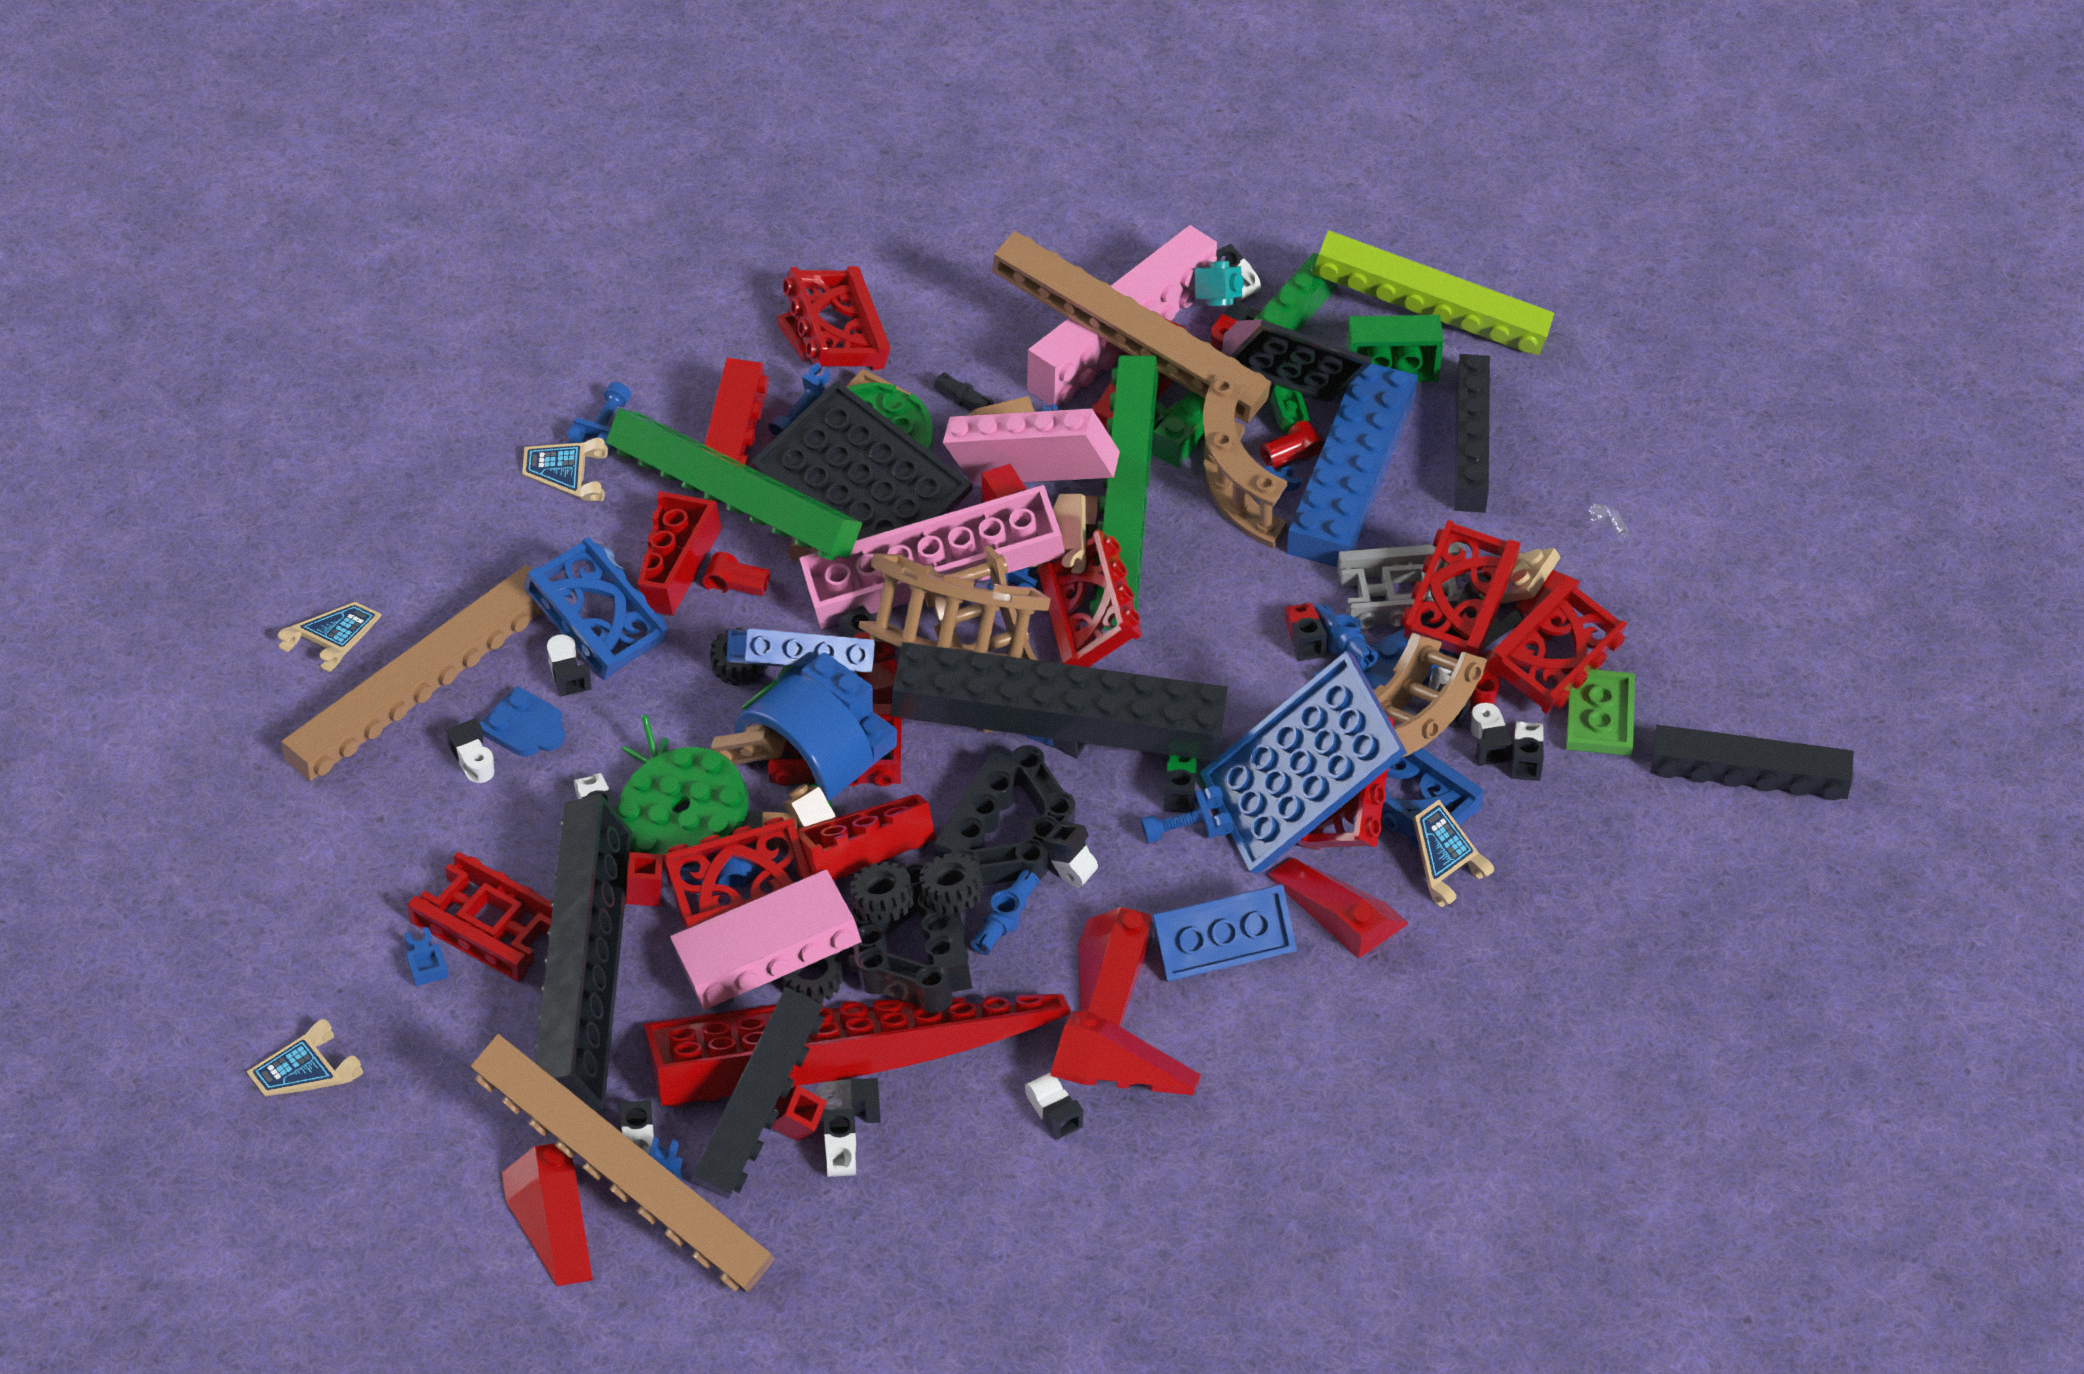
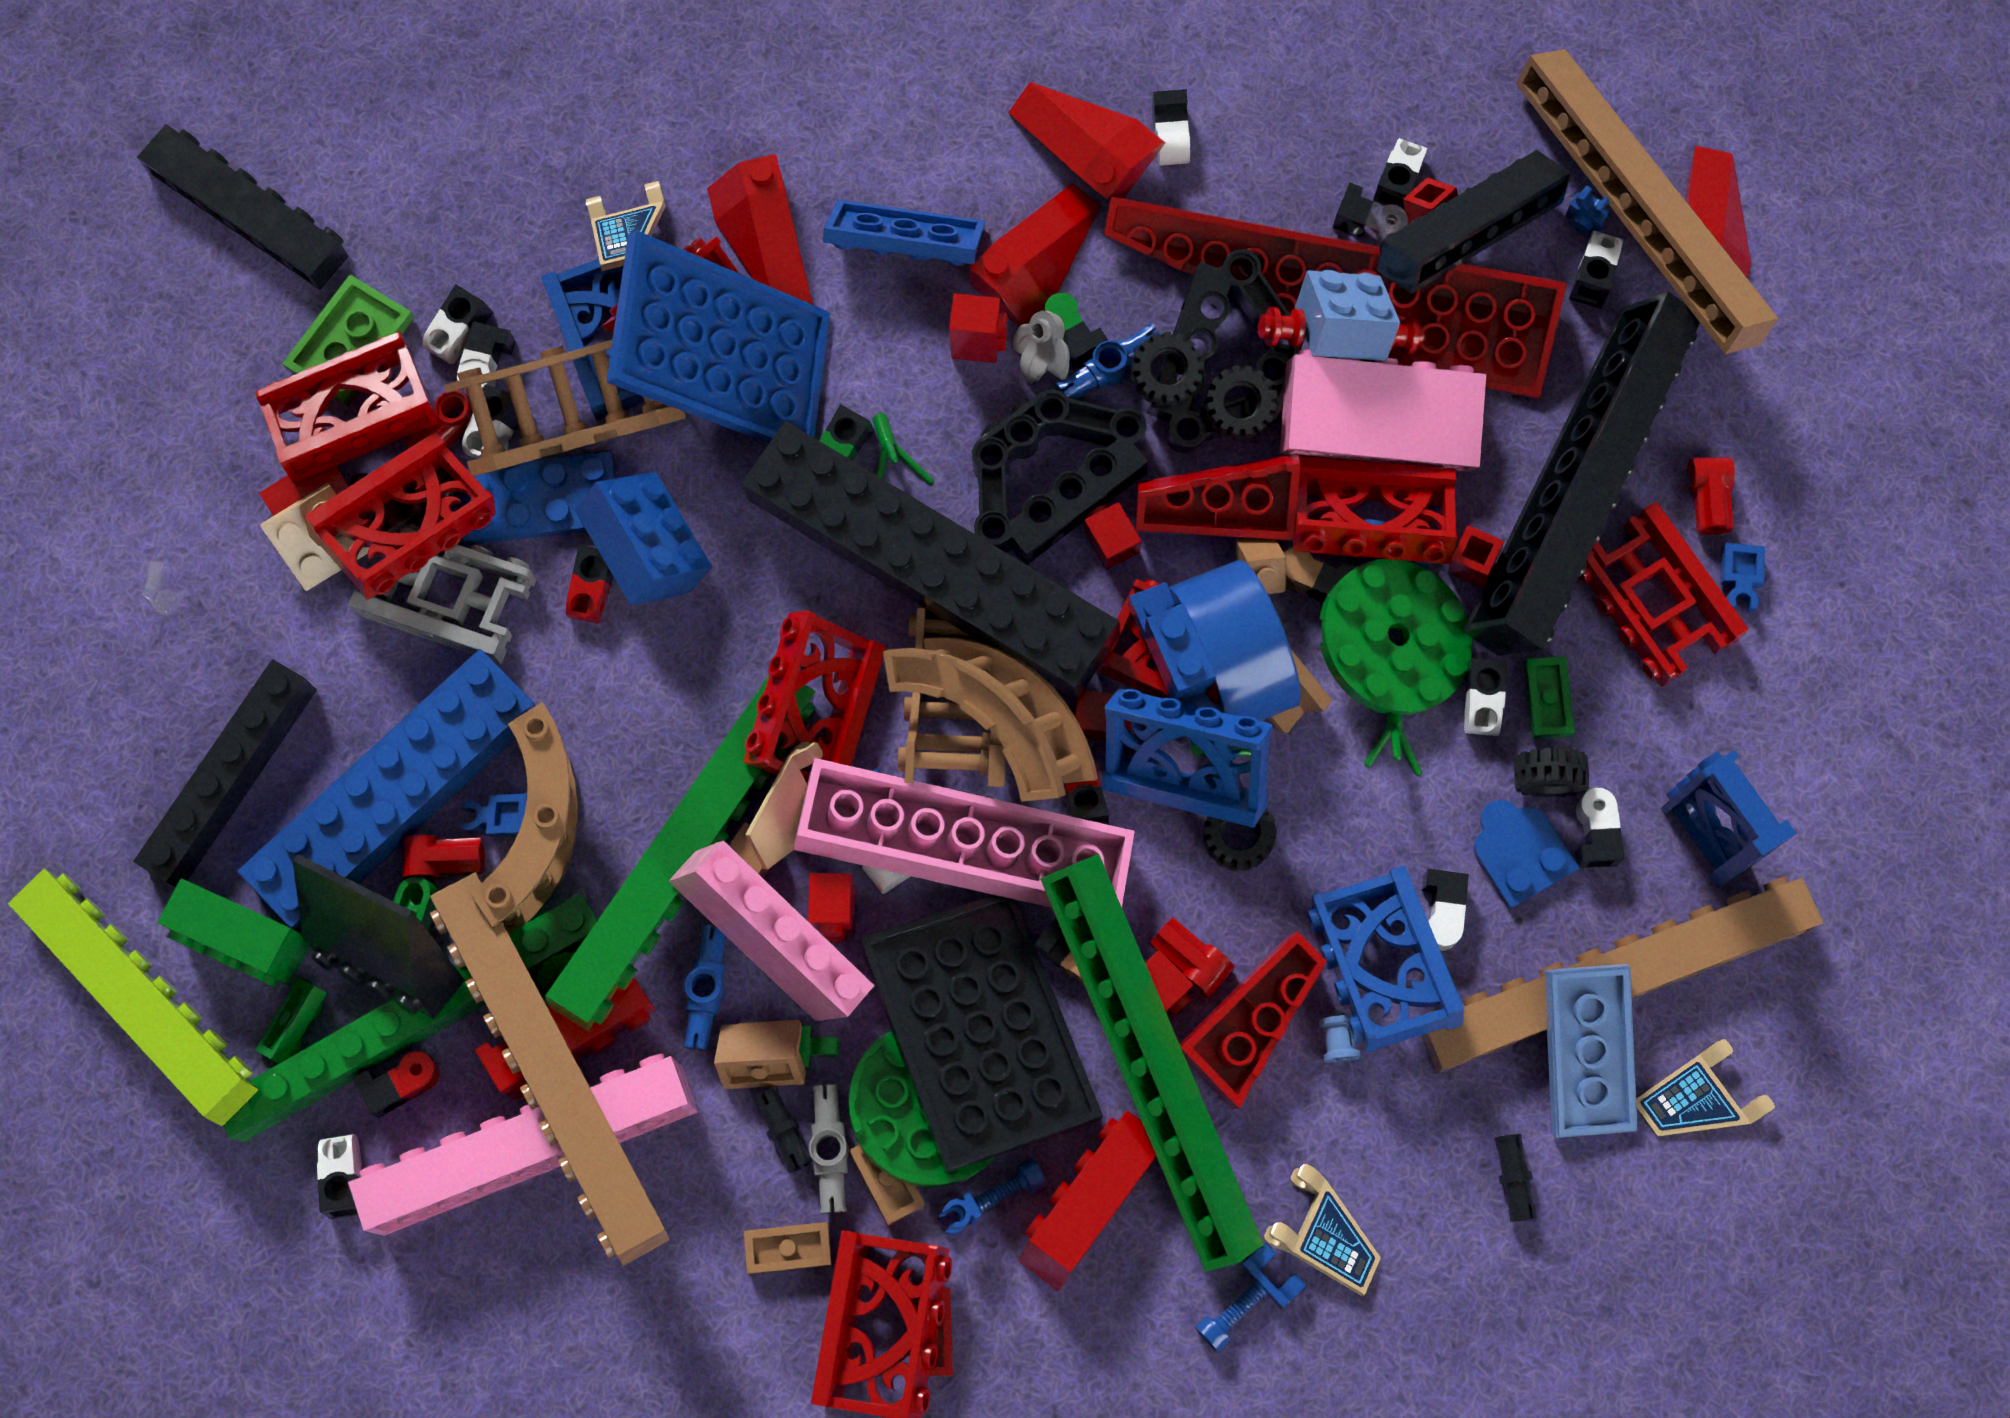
camera: 150 degrees left, 25 degrees up
(303, 1066) = (1912, 502): flag -> none
(400, 729) = (1755, 828): none -> blue fence
(424, 612) = (1590, 1050): none -> medium blue tile
(447, 540) = (1515, 1177): none -> black pin
(472, 1006) = (1712, 488): none -> red piece
(523, 761) = (1551, 772): none -> black tyre
(542, 819) = (1549, 697): none -> green plate
(750, 547) = (1170, 983): none -> red brick
(830, 966) = (1343, 319): none -> medium blue brick
(922, 341) = (787, 1248): none -> medium nougat plate
(927, 389) = (832, 1171): none -> light grey pin
(940, 794) = (1112, 535): none -> red brick
(1048, 923) = (1076, 335): none -> leg
(1064, 897) = (1042, 347): none -> light grey plate
(1071, 855) = (1011, 386): leg -> none
(1122, 878) = (977, 328): none -> red brick
(1145, 799) = (892, 449): none -> green plant
(1207, 799) = (833, 369): blue bar -> none
(1218, 283) = (381, 1127): teal brick -> none
(1278, 649) = (643, 538): none -> blue brick
(1325, 324) = (291, 1020): none -> green plate
(1345, 635) = (555, 530): blue pin -> none

